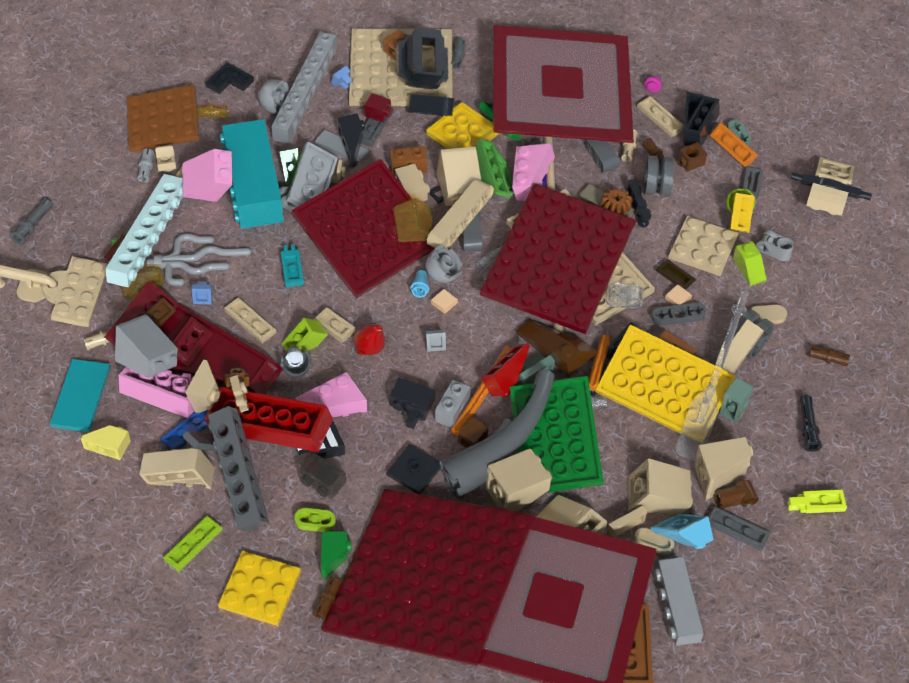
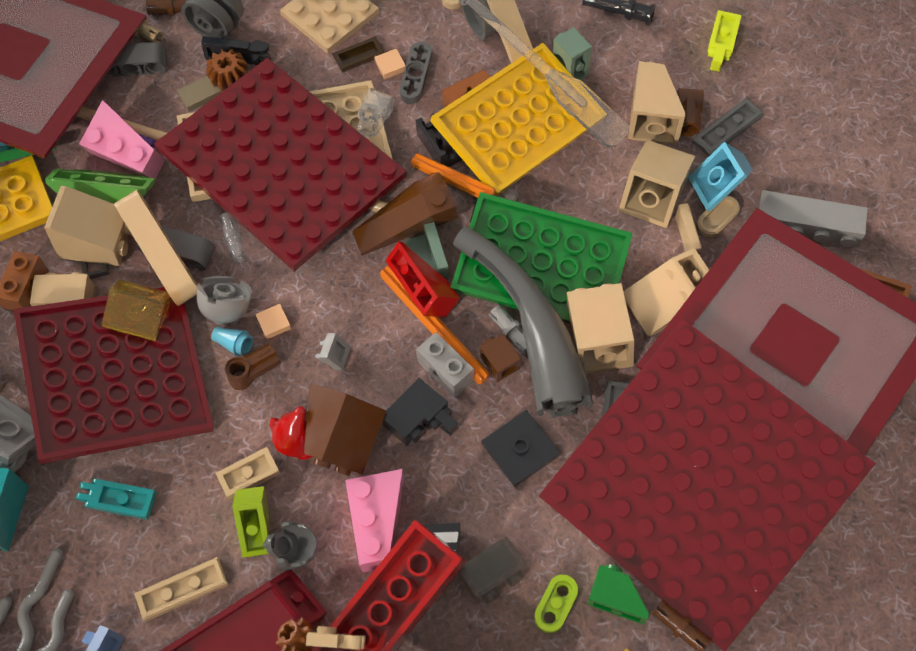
camera: 65 degrees left, 10 degrees up
(379, 357) = (340, 429): none -> reddish brown slope
(401, 297) = (252, 365): none -> reddish brown piece

